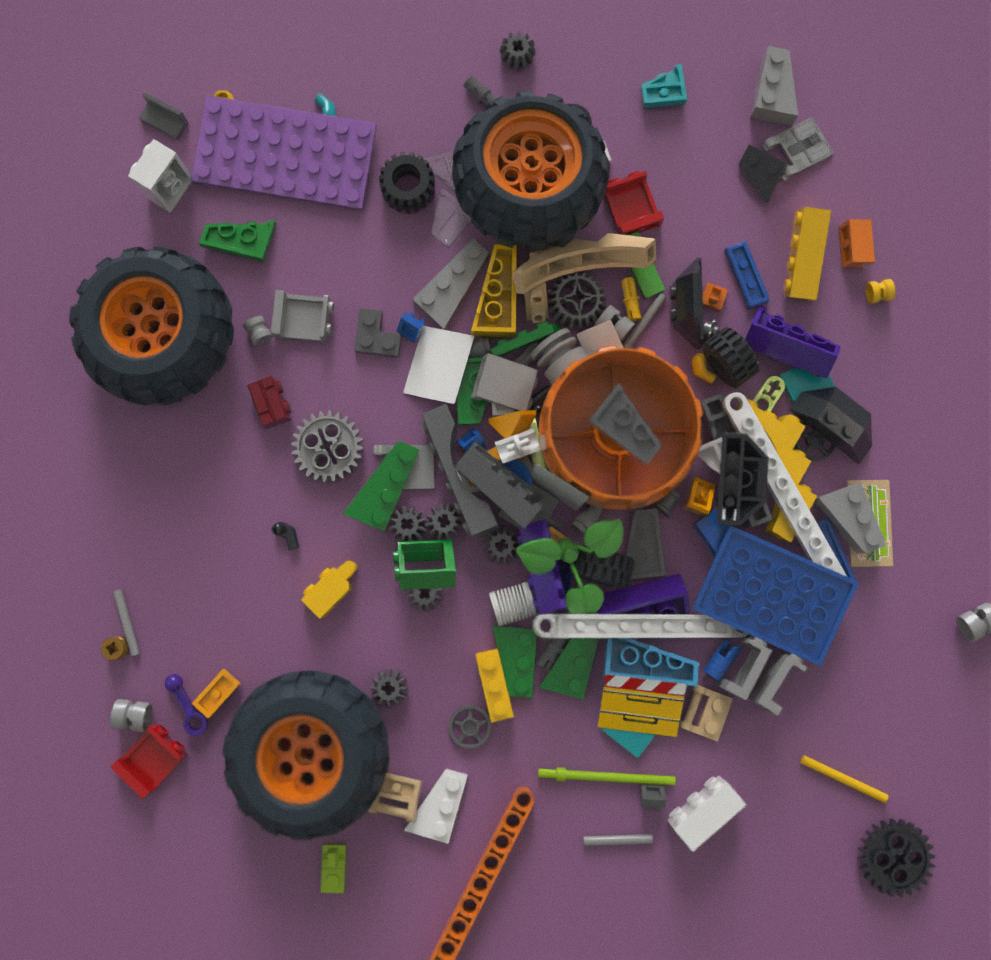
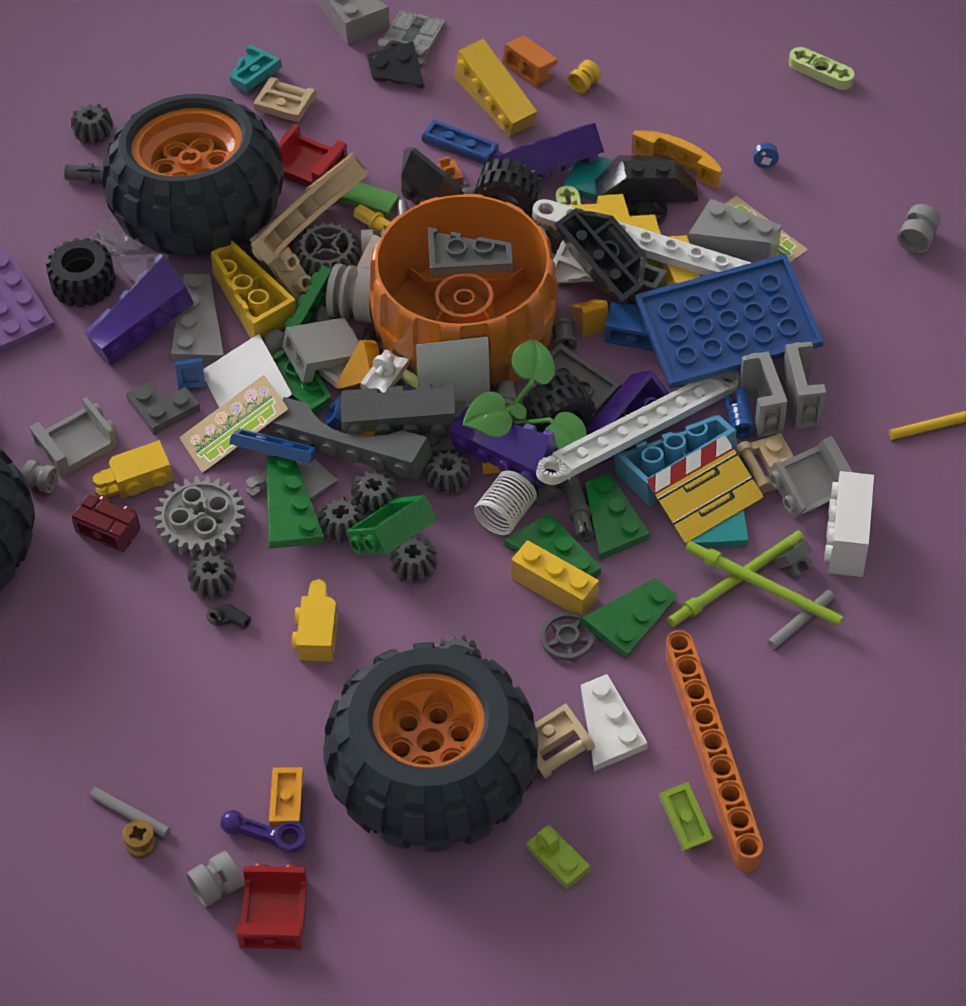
camera: 40 degrees left, 30 degrees down
(293, 505) = (211, 575): none -> dark grey gear
(316, 377) = (134, 472): none -> yellow hinge
(403, 393) = (247, 410): none -> sticker
(407, 437) = (273, 446): none -> blue tile
(413, 254) = (140, 312): none -> dark purple wedge
(422, 914) = (685, 816): none -> lime hinge
(516, 750) = (631, 616): none -> green wing
(602, 757) = (714, 559): none -> lime bar
(657, 139) = (284, 100): none -> tan plate
(717, 753) = (808, 477): none -> light grey panel
(869, 390) = (681, 152): none -> light orange slope
(938, 468) = (765, 155): none -> blue tile

